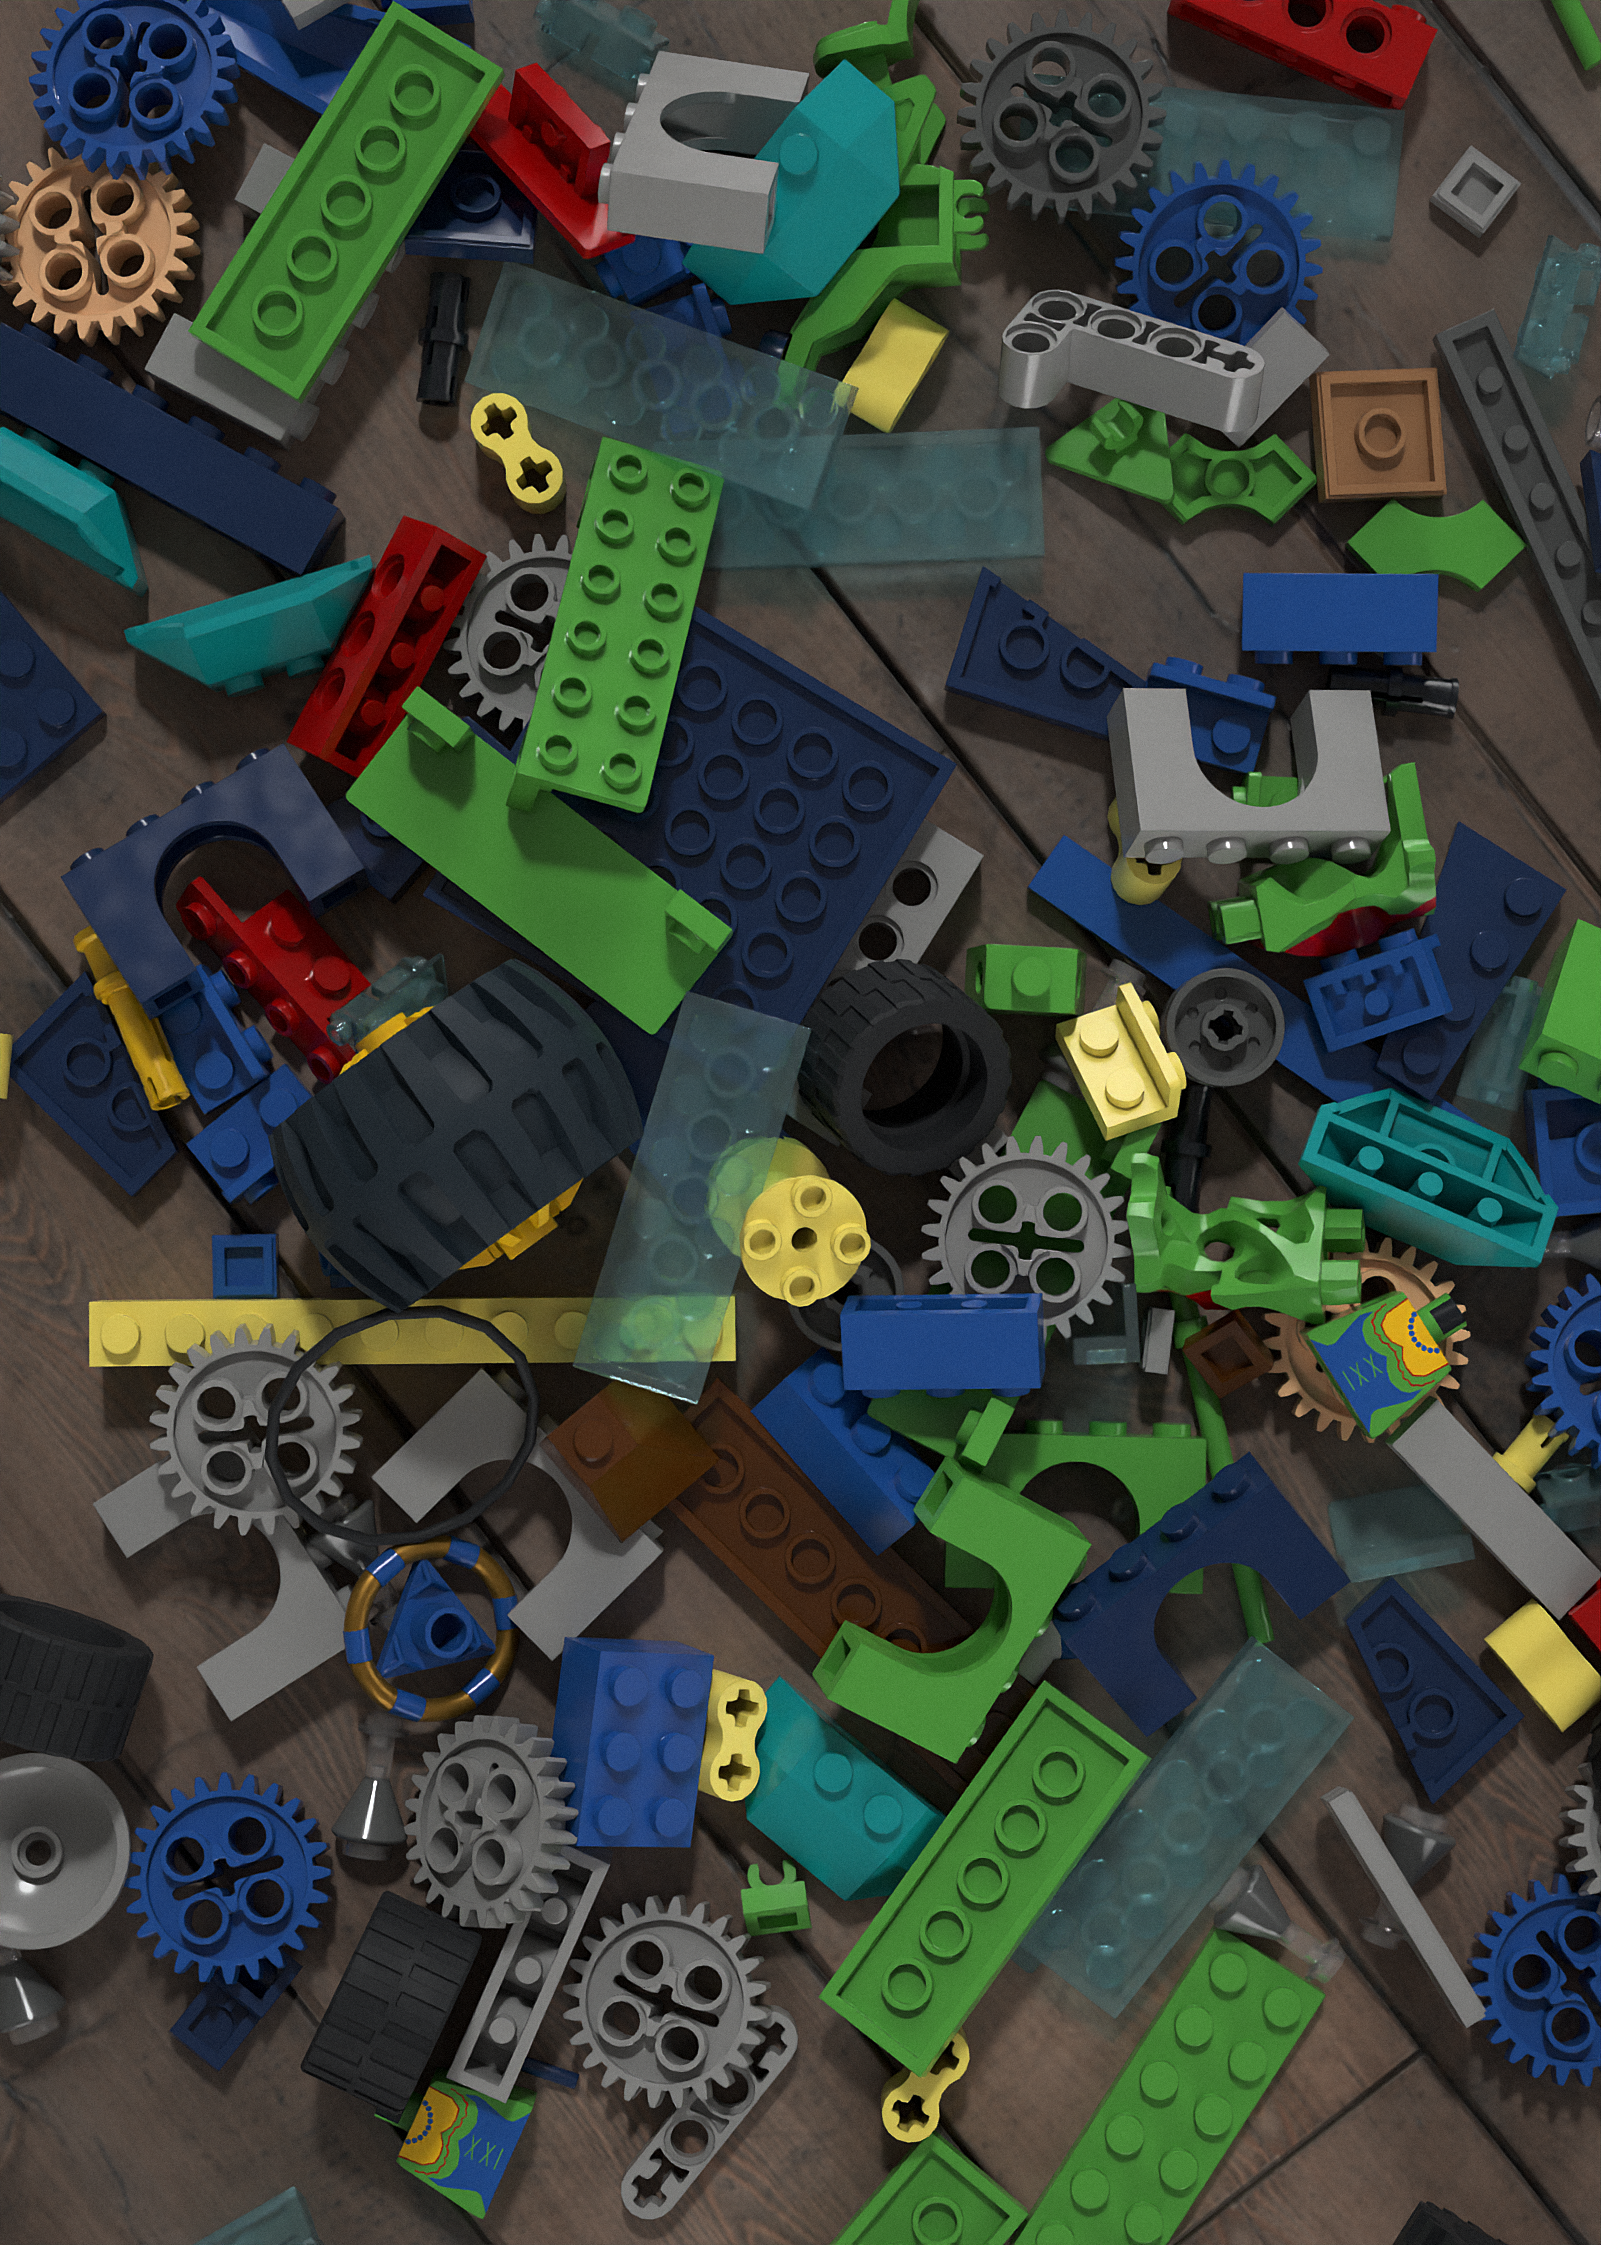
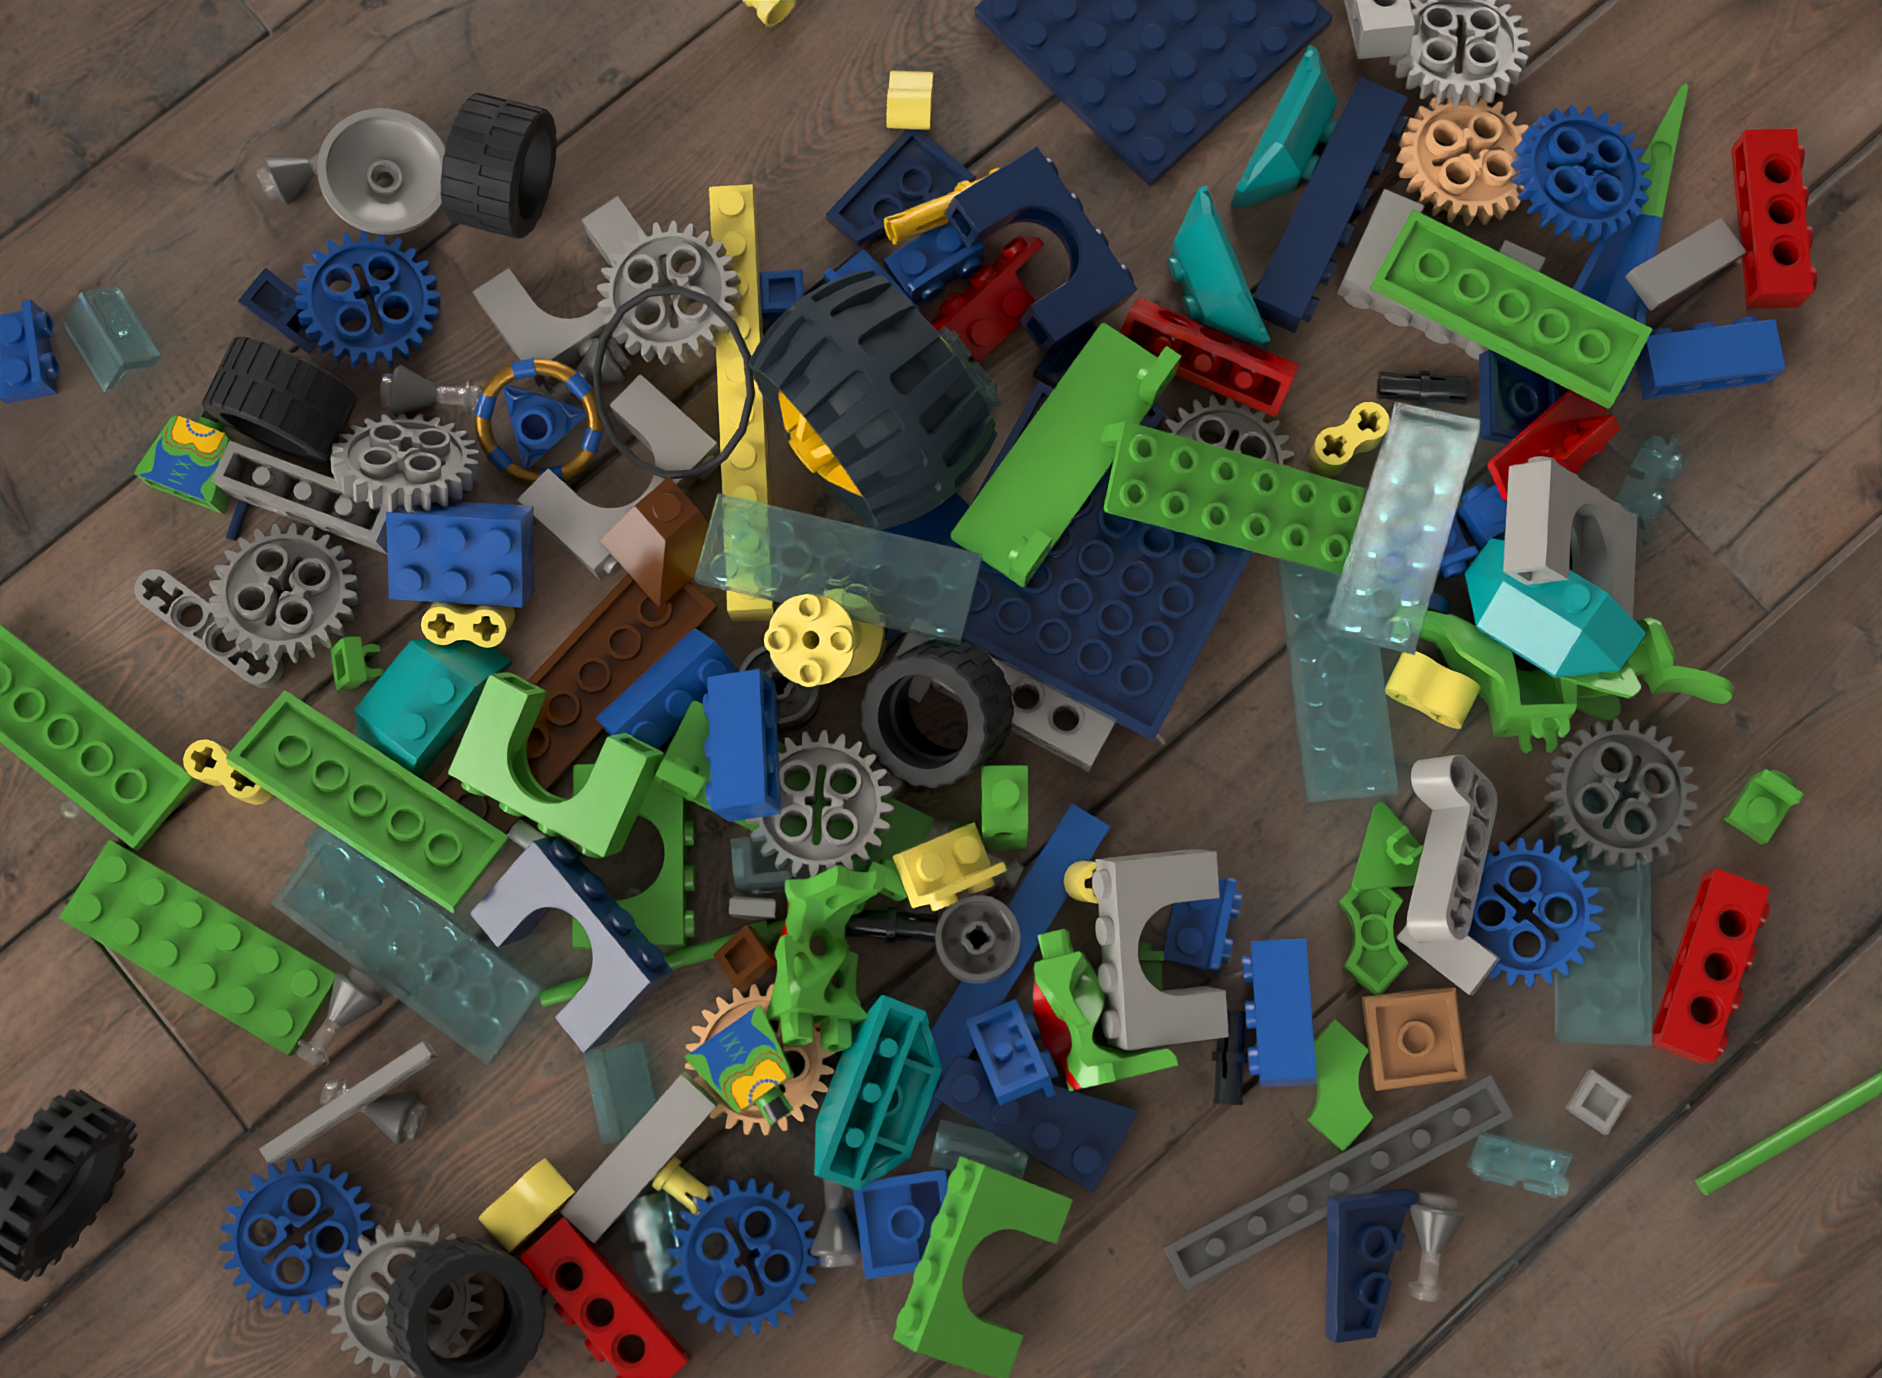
camera: 90 degrees right, 10 degrees down
(1033, 664) = (1230, 797): dark blue wing -> none
(1429, 1687) = (508, 1122): dark blue wing -> none

